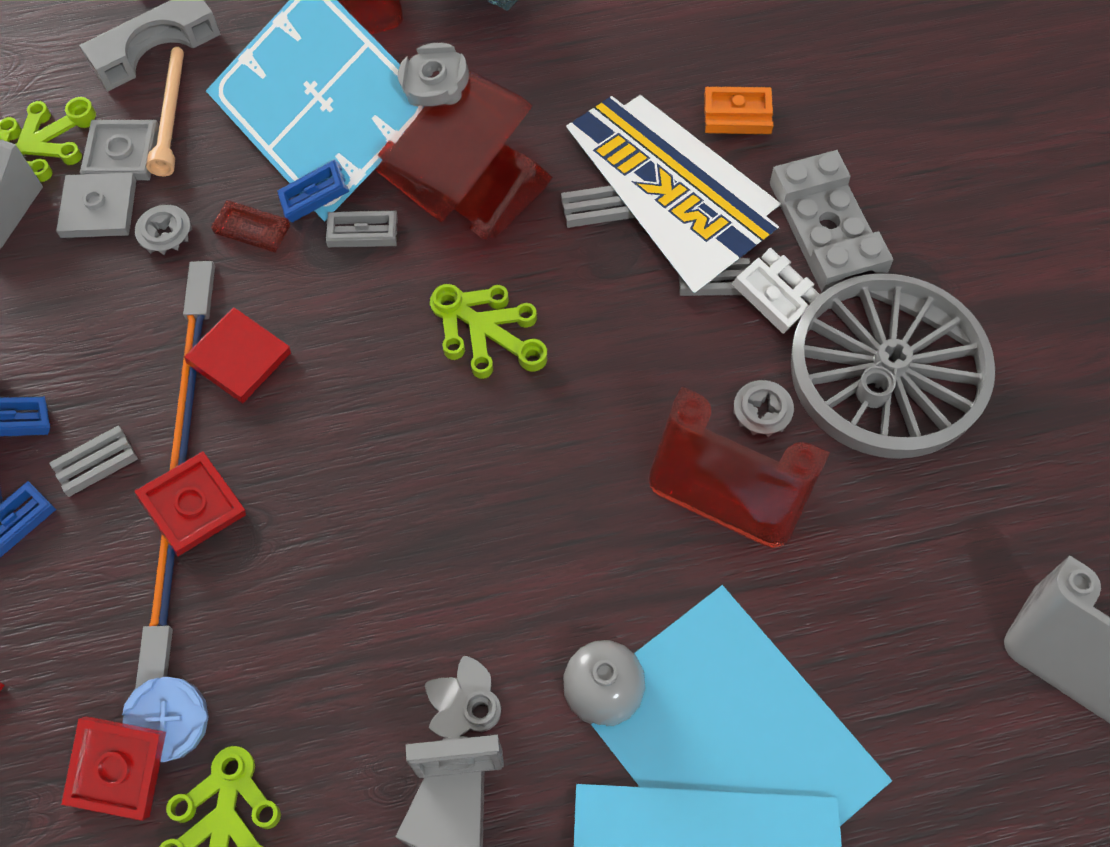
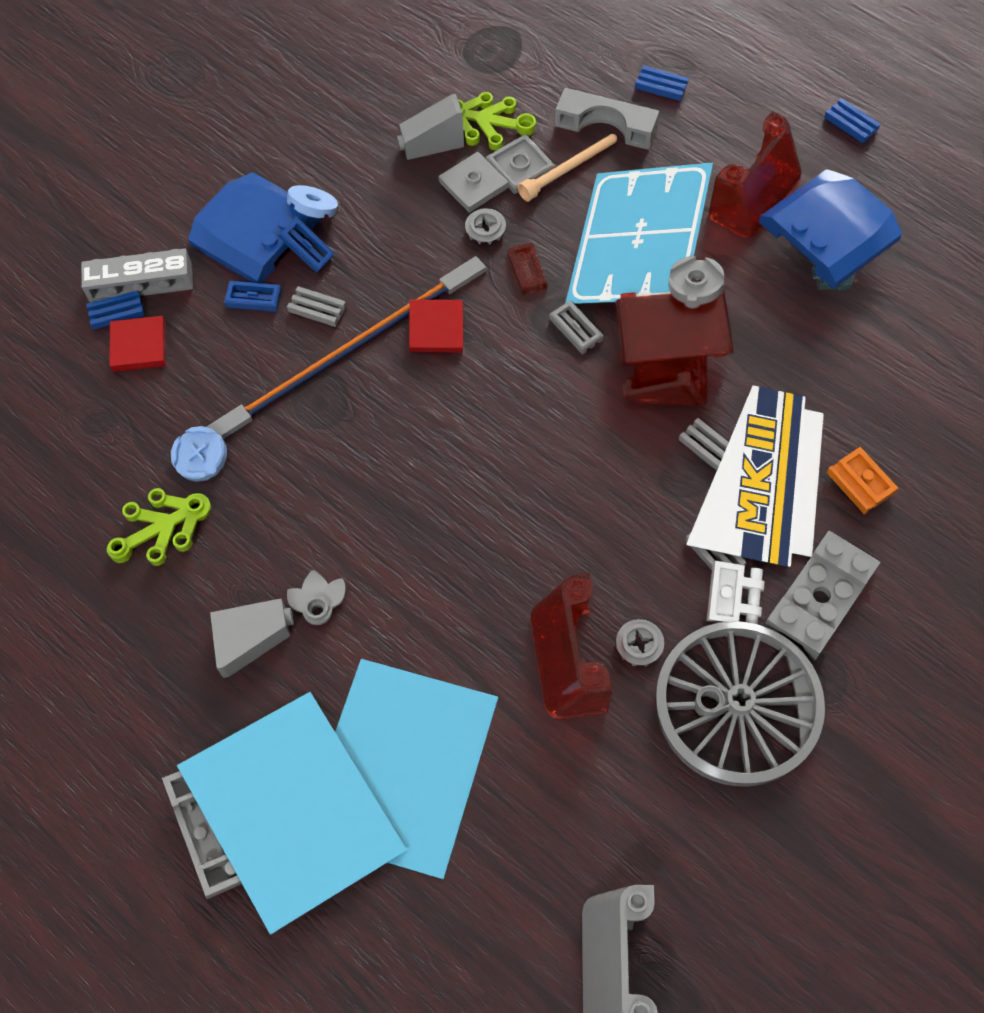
camera: 55 degrees right, 0 degrees up
(113, 768) = (155, 449): red tile -> none
(190, 503) = (326, 372): red tile -> none
(314, 195) = (573, 284): blue tile -> none
(455, 756) = (267, 606): light grey plate -> none
(486, 324) = (565, 441): lime plant -> none
(604, 683) = (381, 667): light grey cylinder -> none

